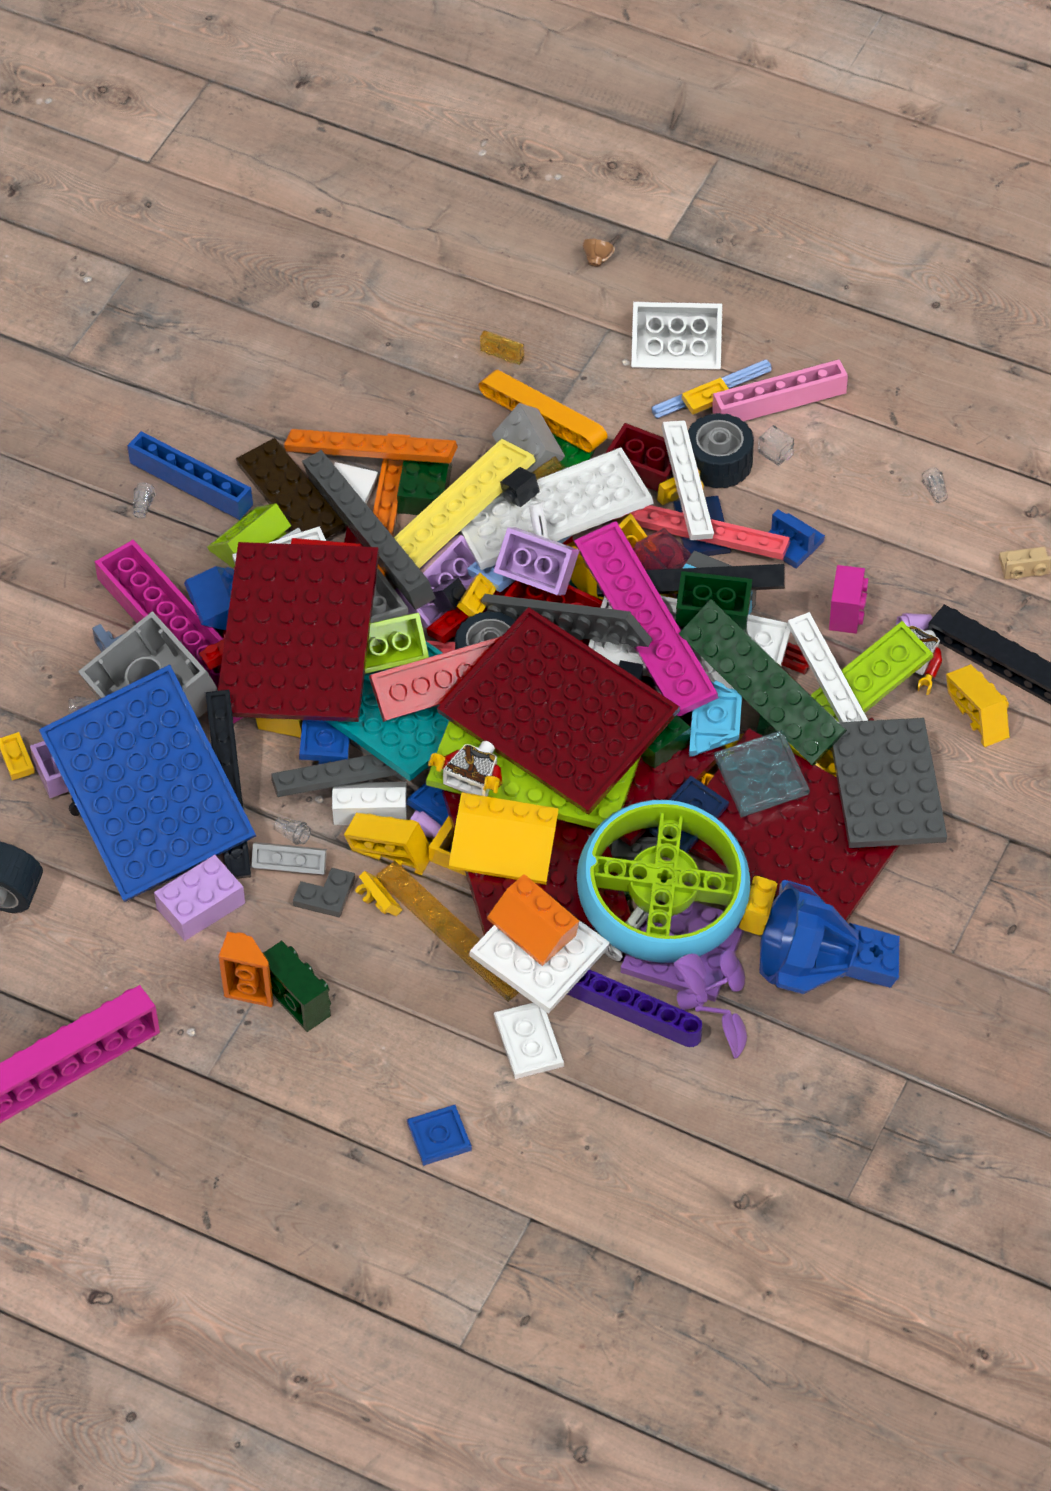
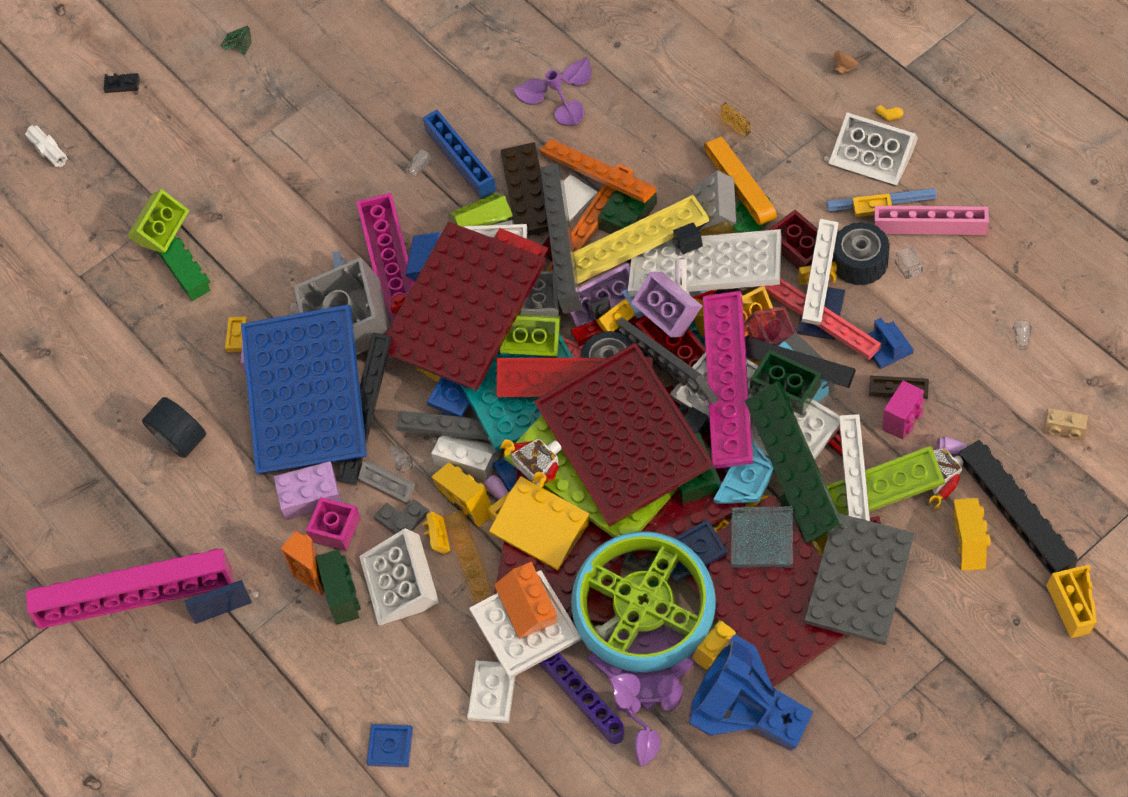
camera: 30 degrees right, 5 degrees up
(157, 1048) = (218, 601): none -> dark blue tile
(254, 916) = (333, 523): none -> dark pink brick
(284, 347) = (569, 114): none -> medium lavender plant
(357, 956) = (398, 577): none -> white slope
(676, 294) = (889, 114): none -> yellow arm
(817, 581) = (886, 386): none -> dark brown plate

